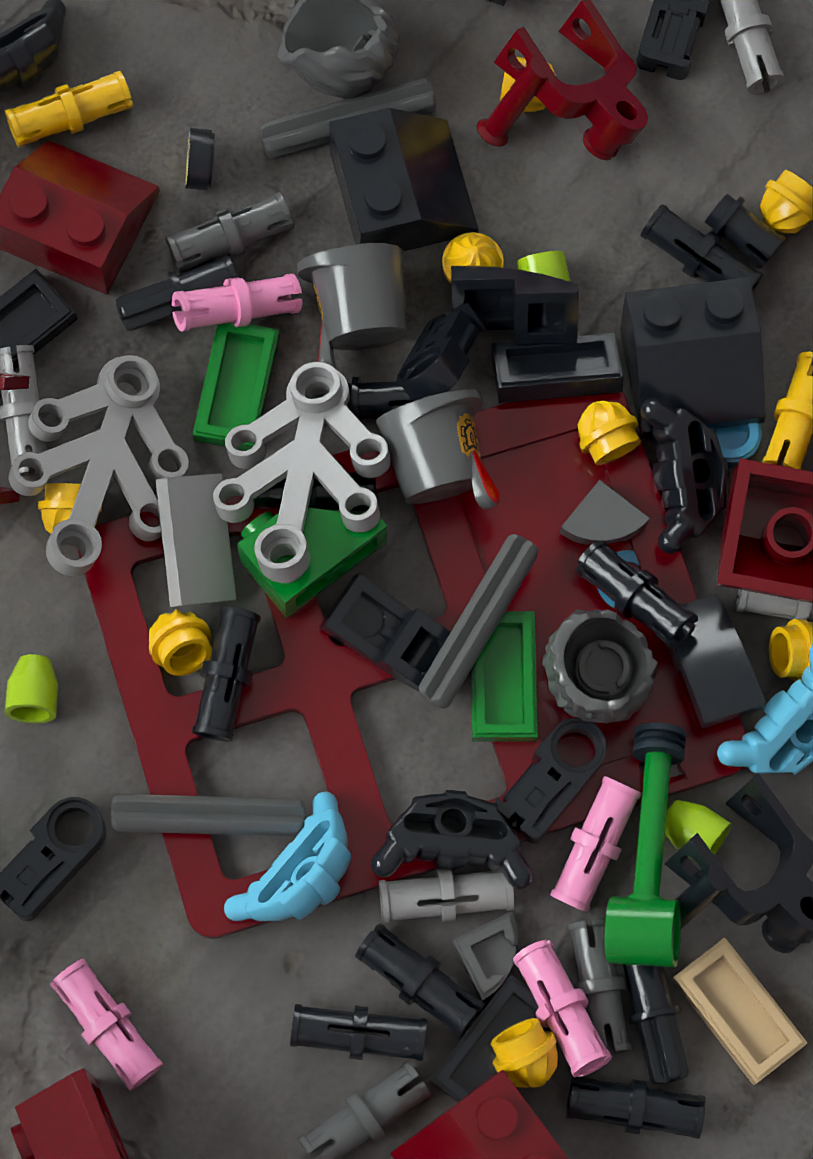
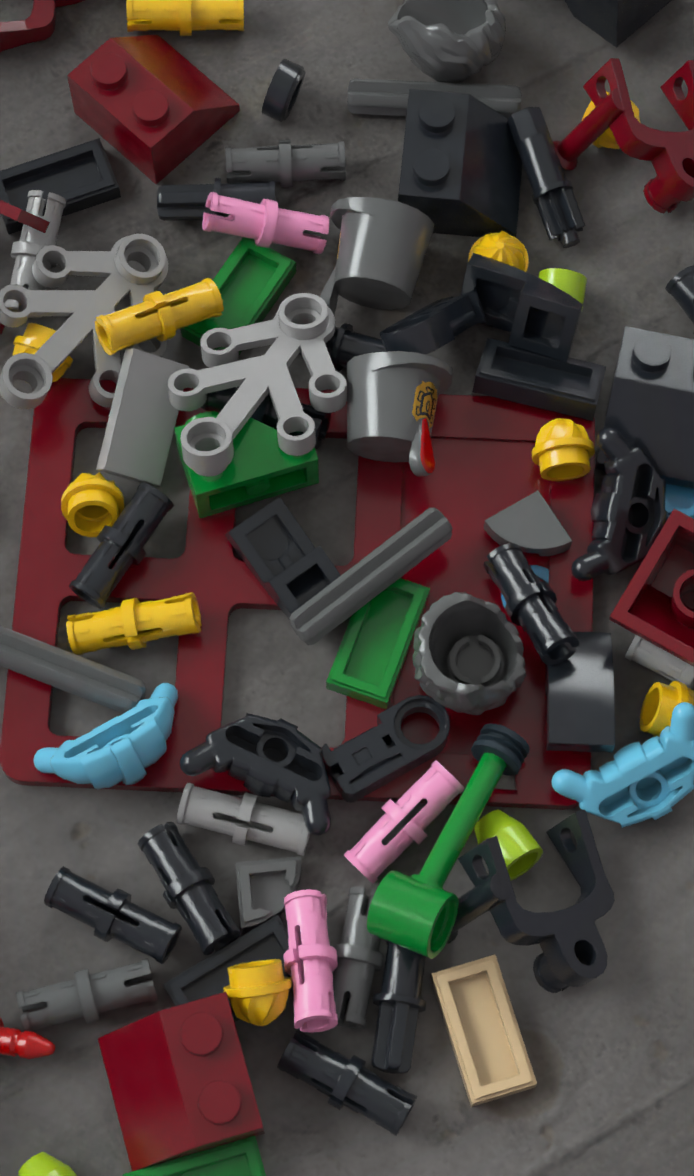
camera: 25 degrees right, 5 degrees down
(174, 434) = (159, 316): none -> yellow pin
(267, 746) = (133, 623): none -> yellow pin
(488, 162) = (546, 176): none -> black piece

